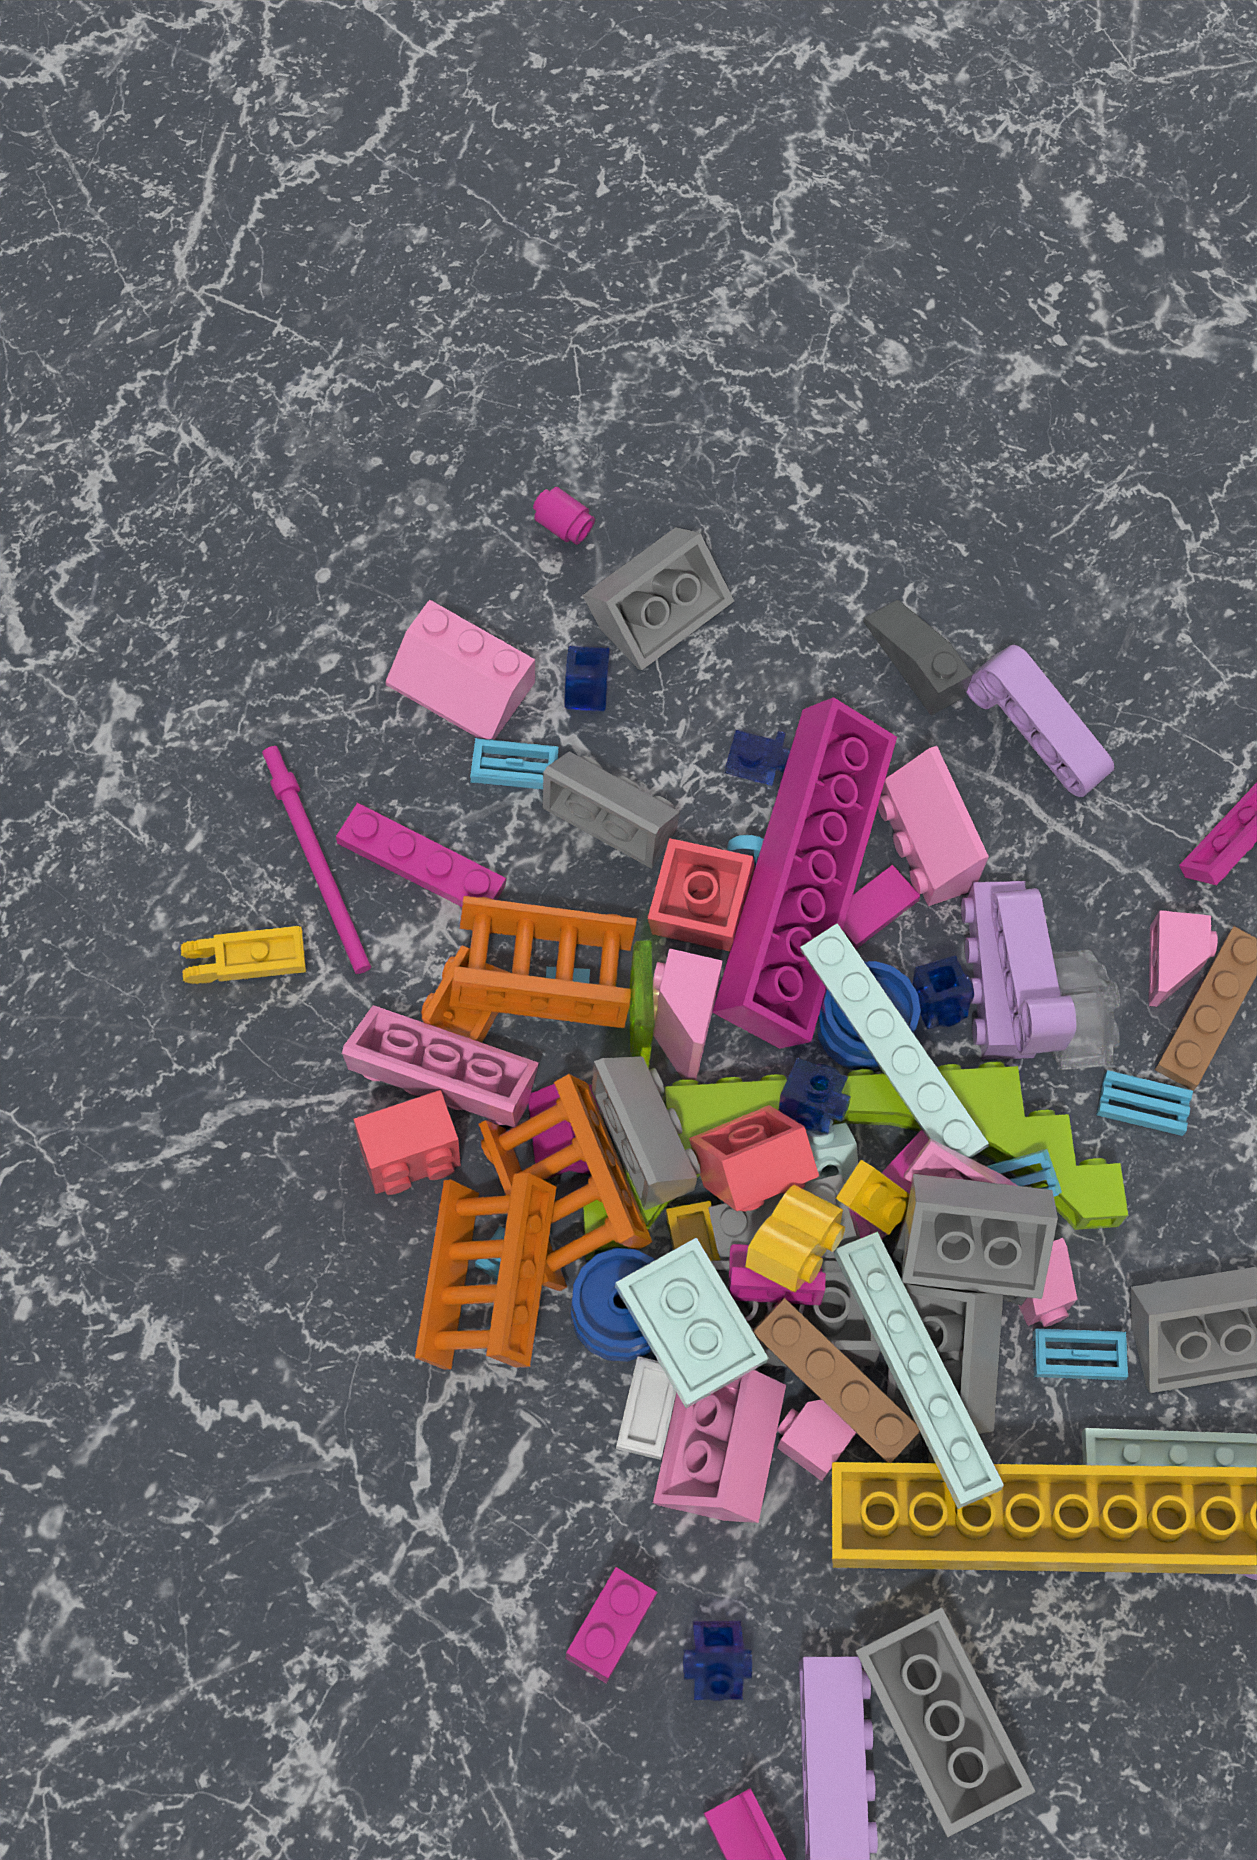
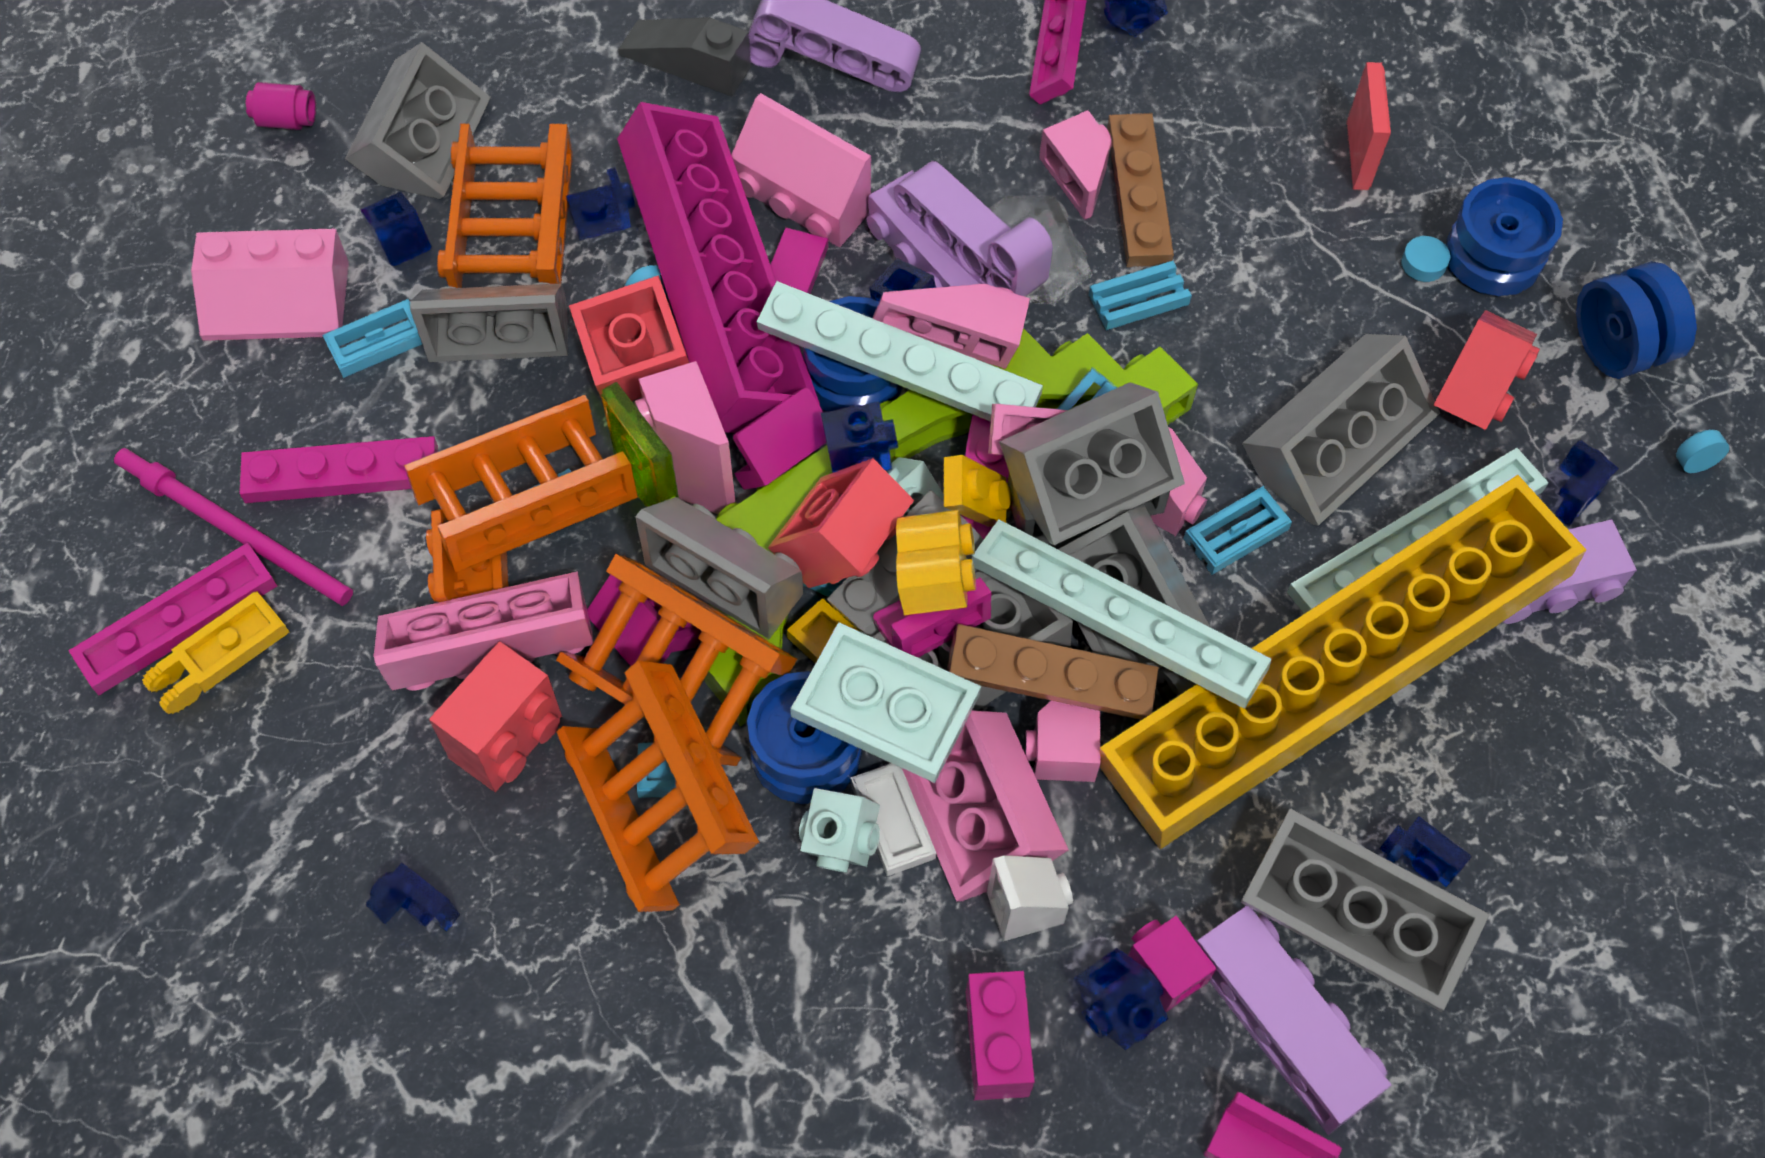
camera: 30 degrees left, 5 degrees down
(230, 908) = (170, 619): none -> dark pink plate
(272, 1246) = (414, 895): none -> clear blue bracket
(599, 1393) = (839, 829): none -> light aqua brick
(702, 750) = (547, 227): none -> orange fence
(705, 1537) = (1027, 895): none -> white slope
(759, 1053) = (780, 439): none -> dark pink panel
(775, 1657) = (1173, 959): none -> dark pink brick
(973, 1049) = (966, 318): none -> bright pink slope
(1037, 1712) = (1429, 851): none -> clear blue bracket

